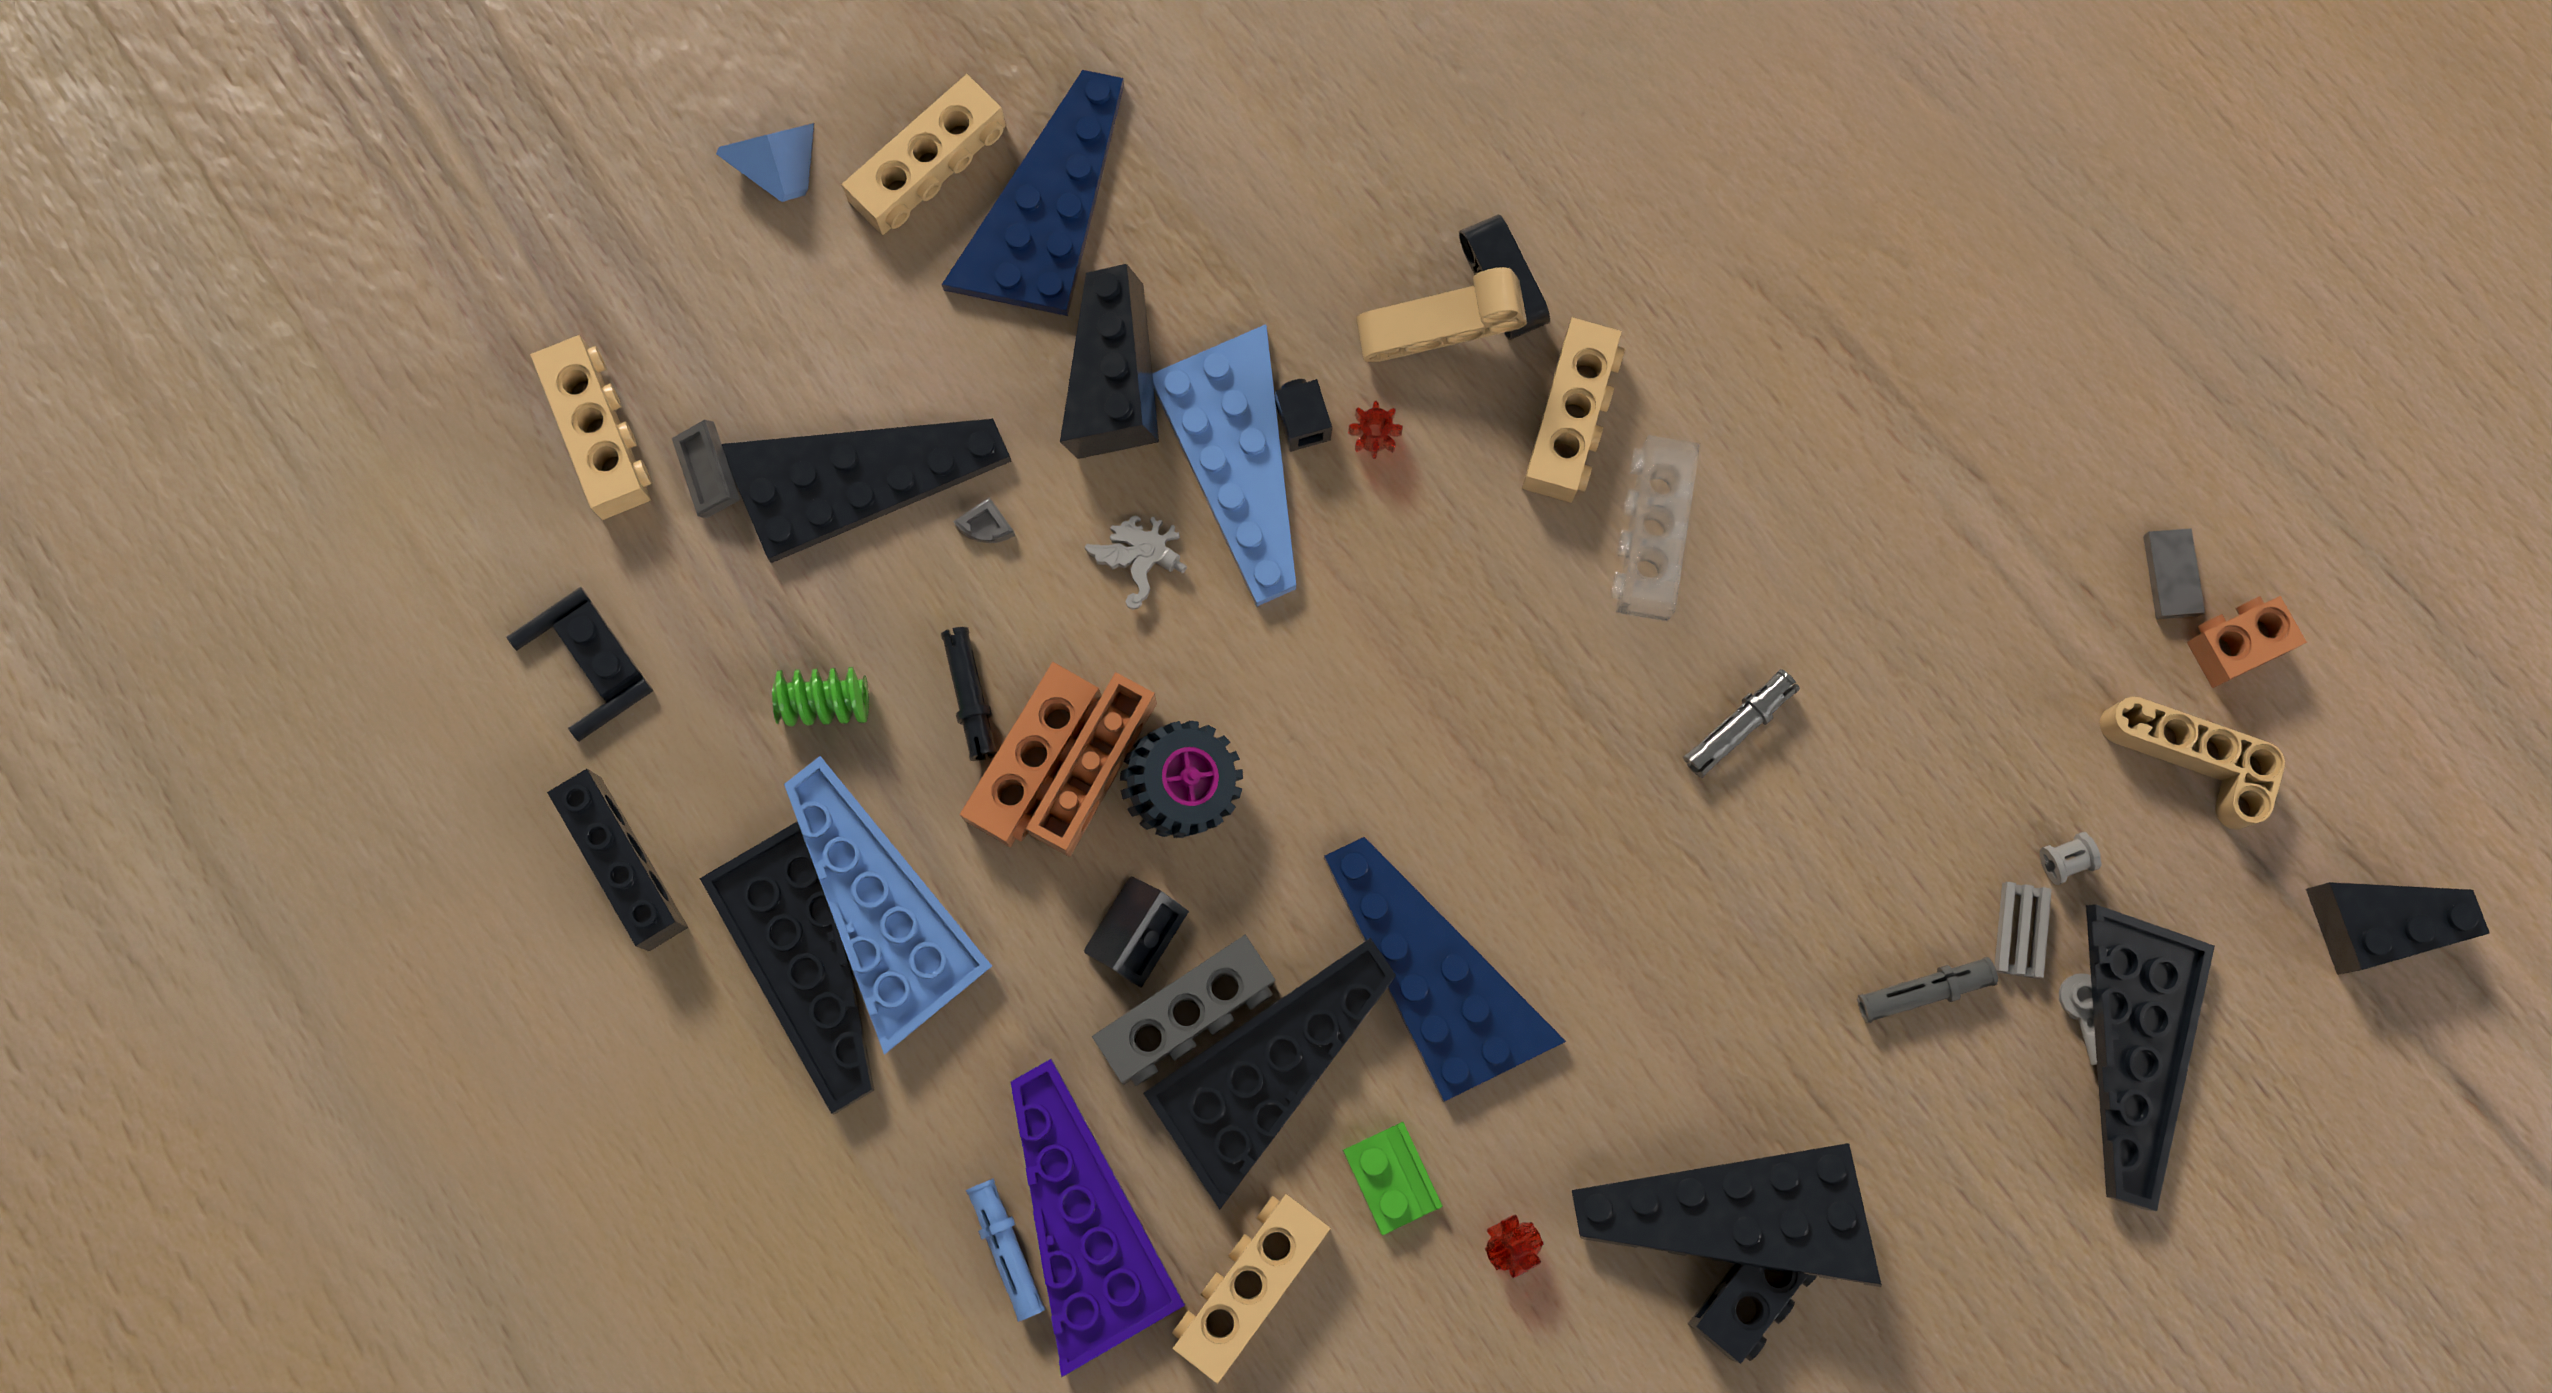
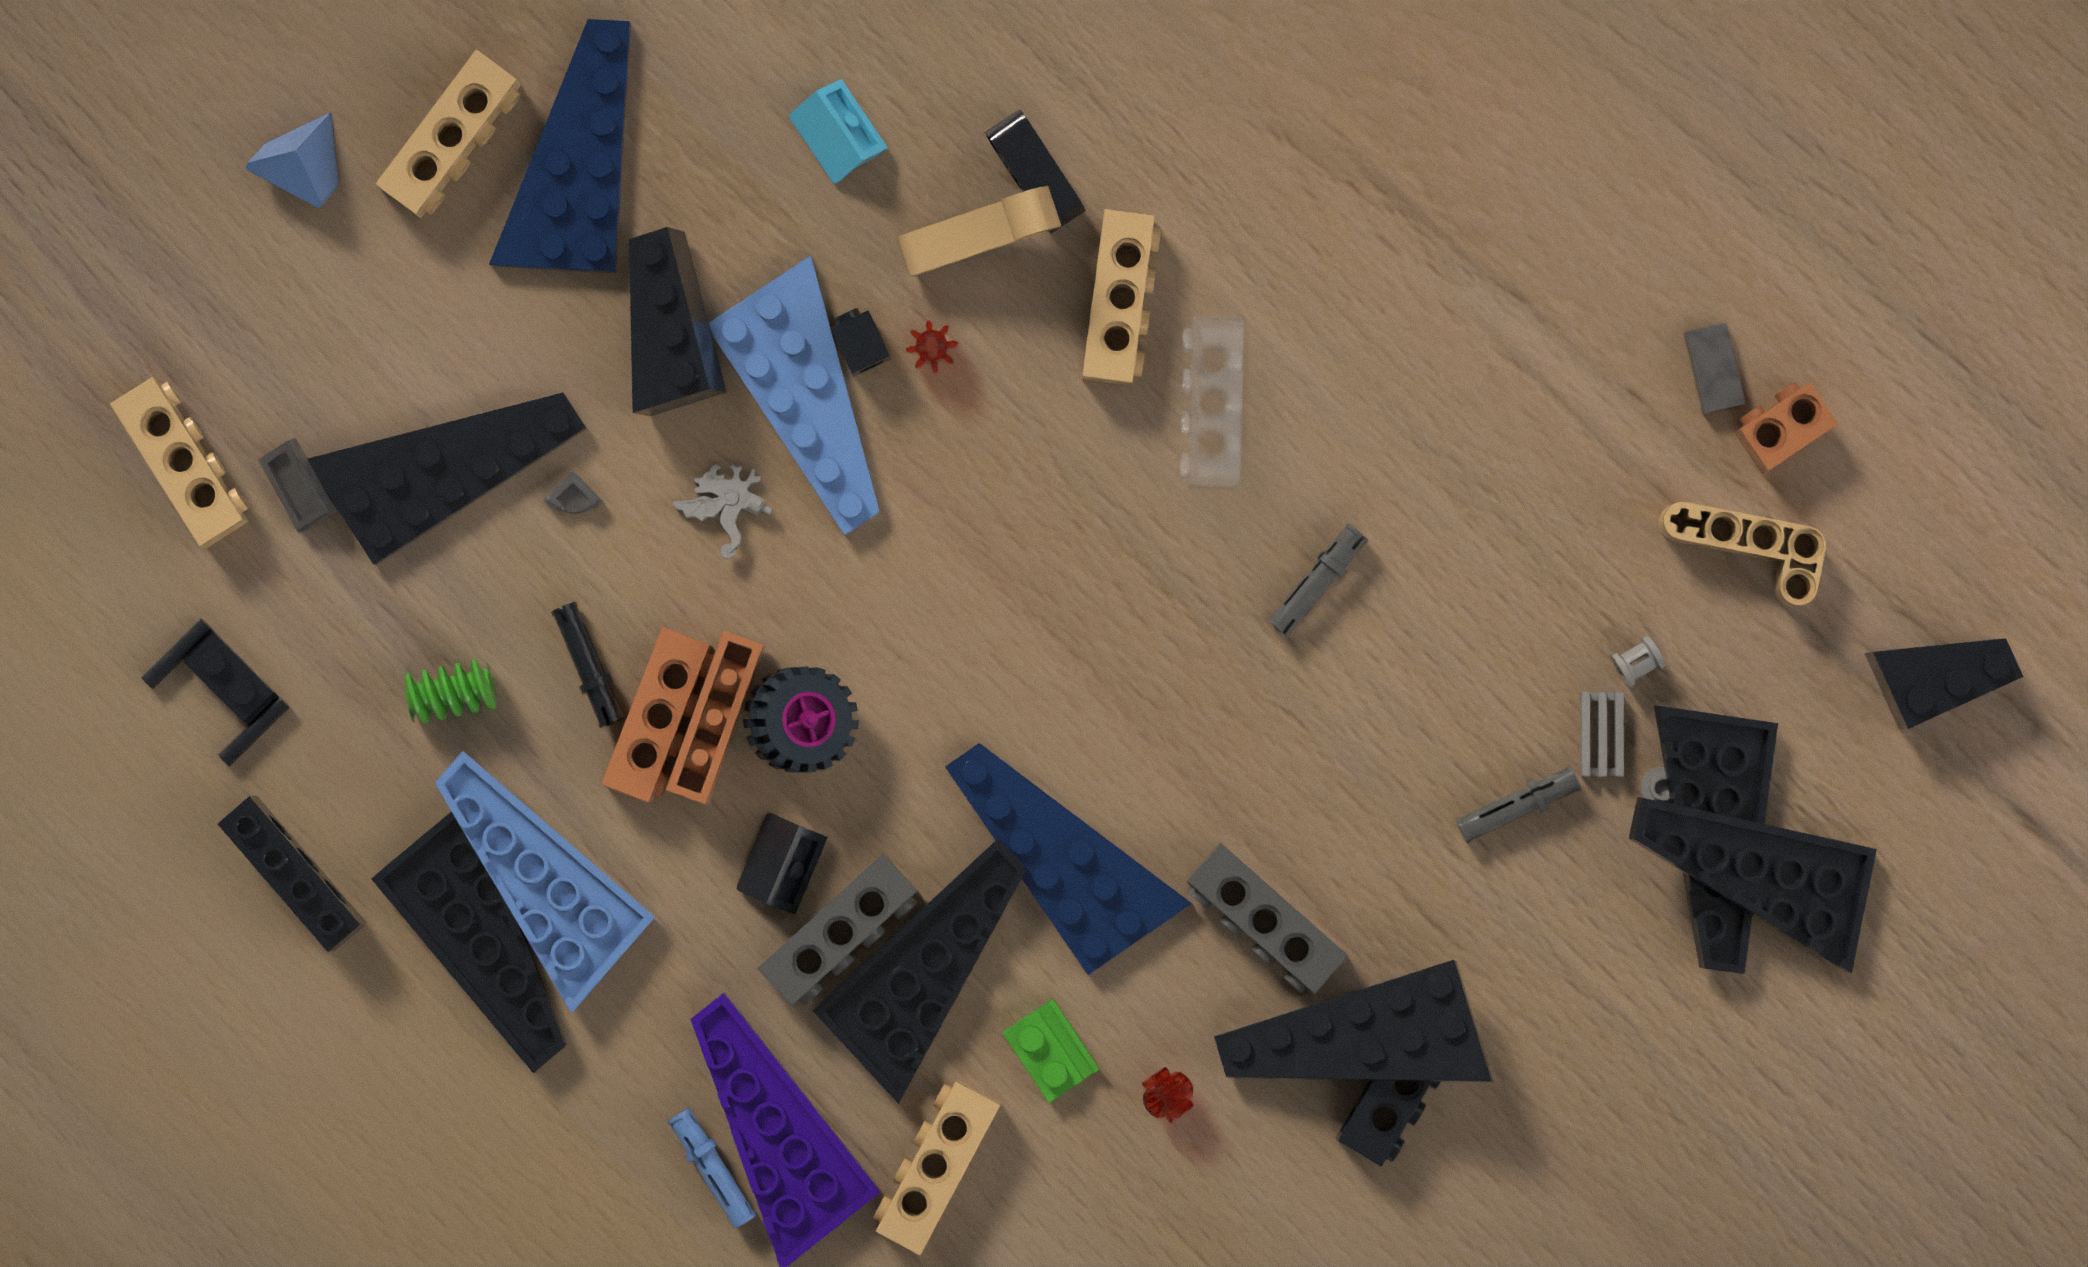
camera: 10 degrees left, 10 degrees up
(1310, 210) = (837, 130): none -> medium azure panel
(1700, 1115) = (1322, 954): none -> dark grey brick
(2211, 1111) = (1787, 878): none -> black wing

